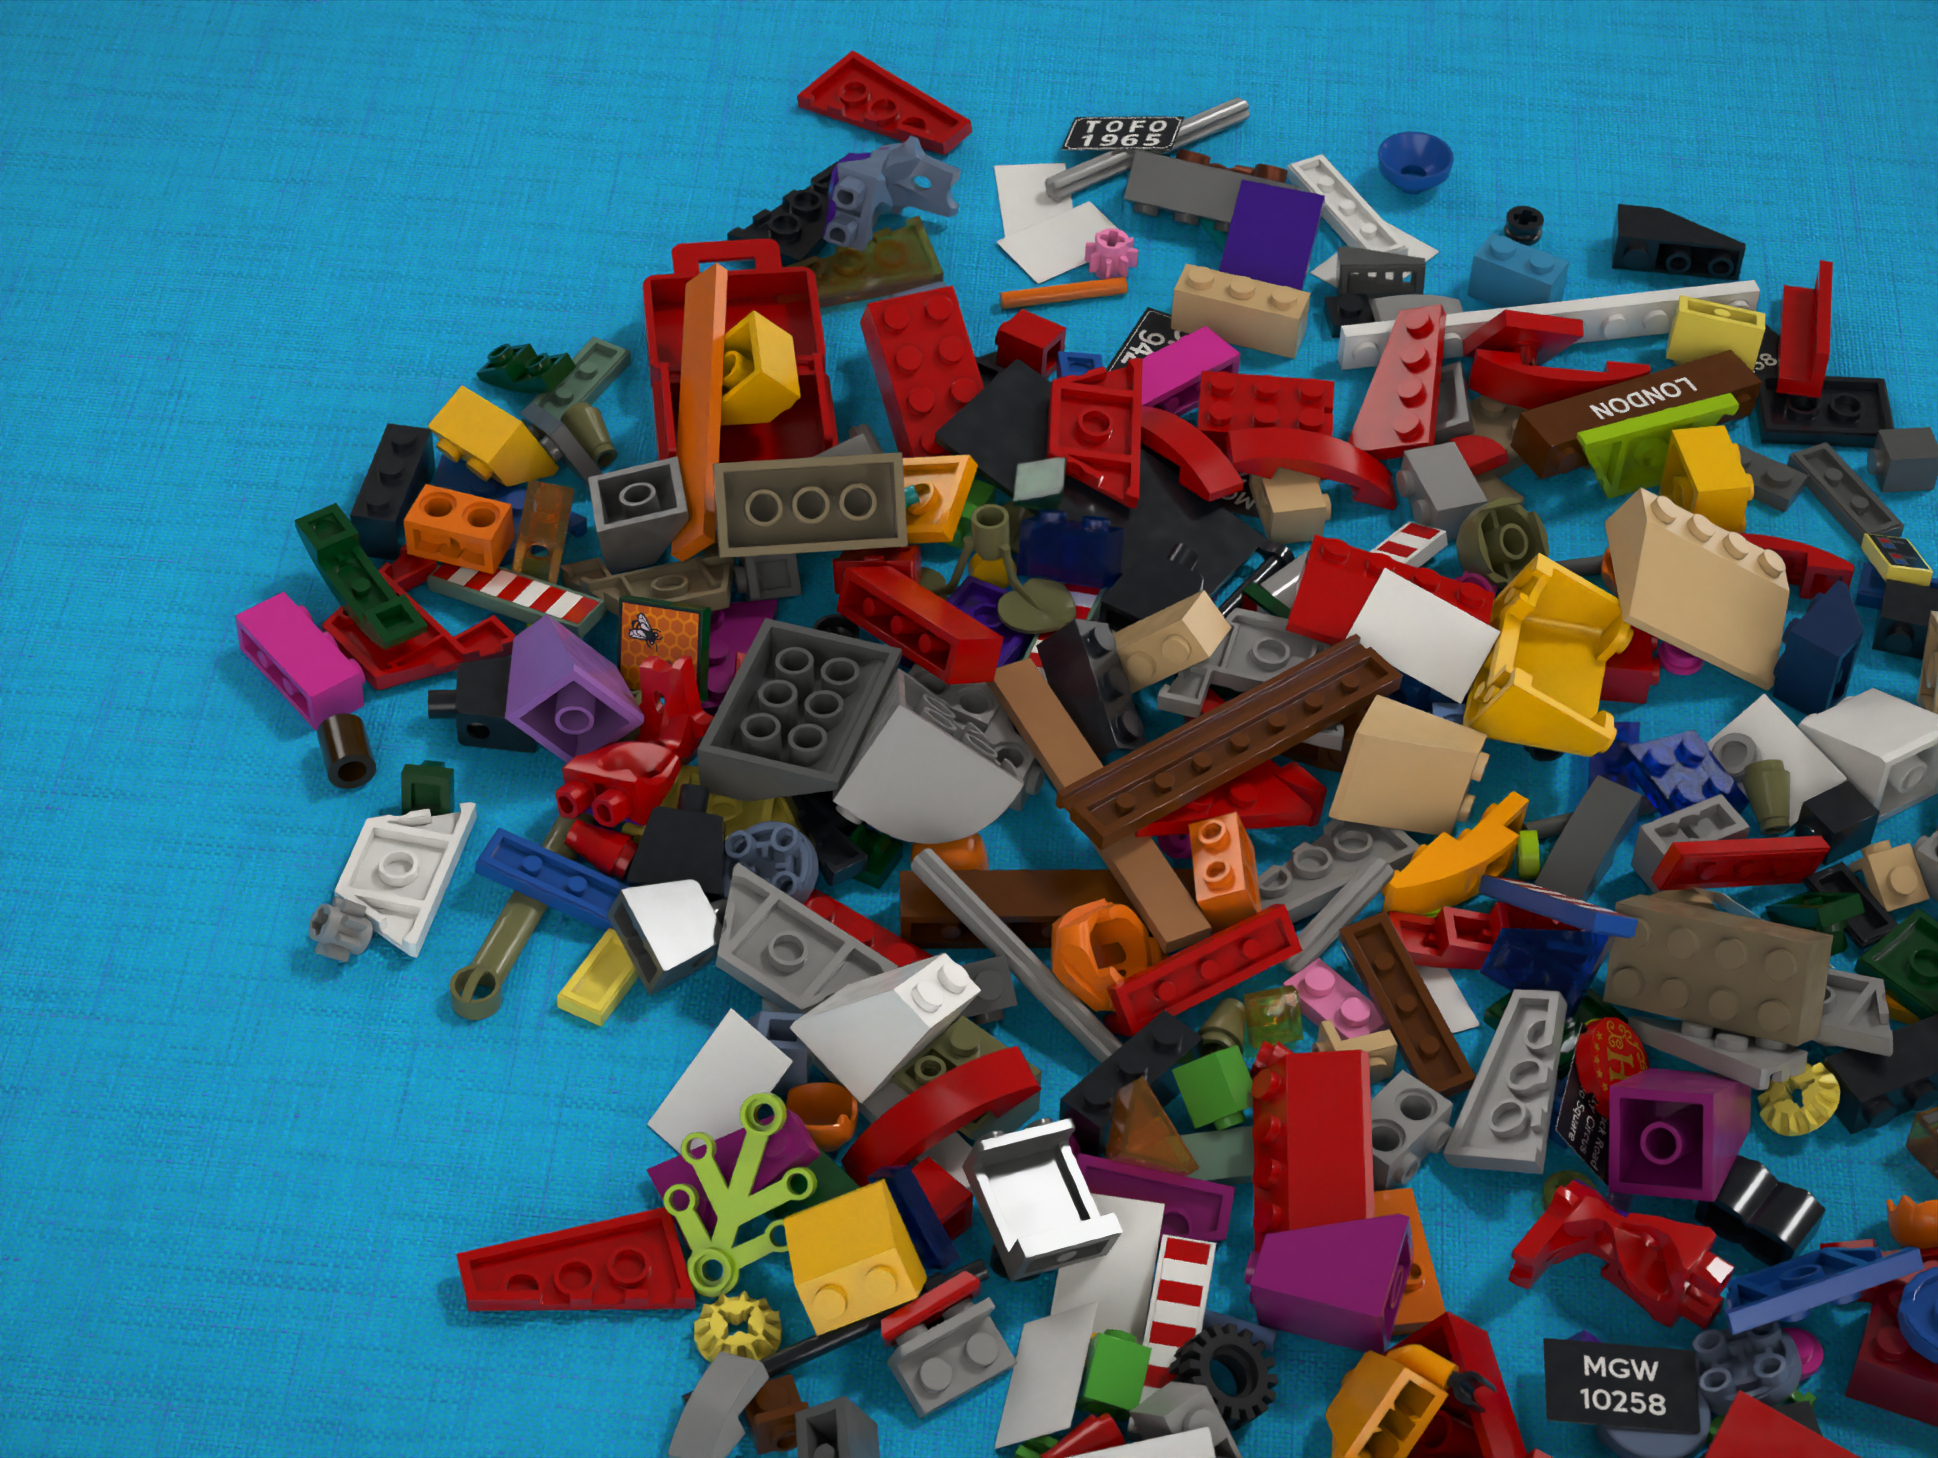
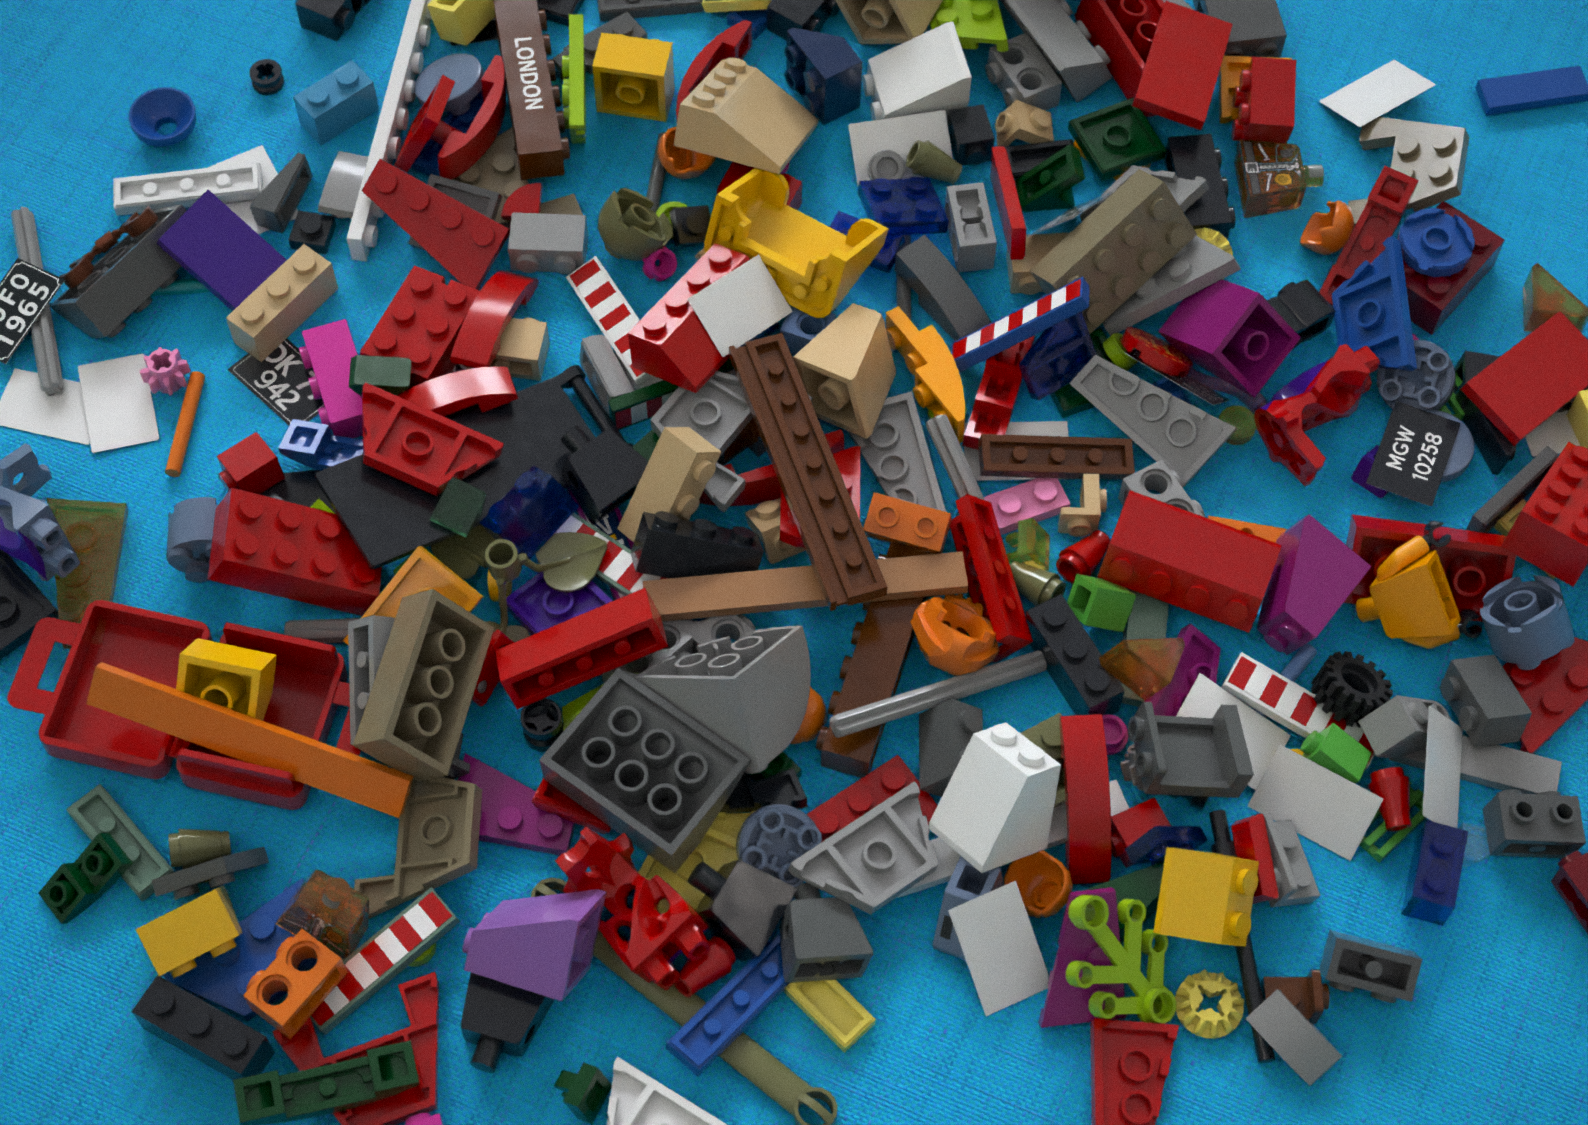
camera: 70 degrees left, 15 degrees up
(638, 513) = (337, 827): flat silver slope -> none
(664, 631) = (514, 853): tile -> none
(1172, 387) = (386, 373): none -> dark green slope
(1527, 855) = (942, 325): lime tile -> none
(1598, 347) = (458, 67): none -> sand blue tile

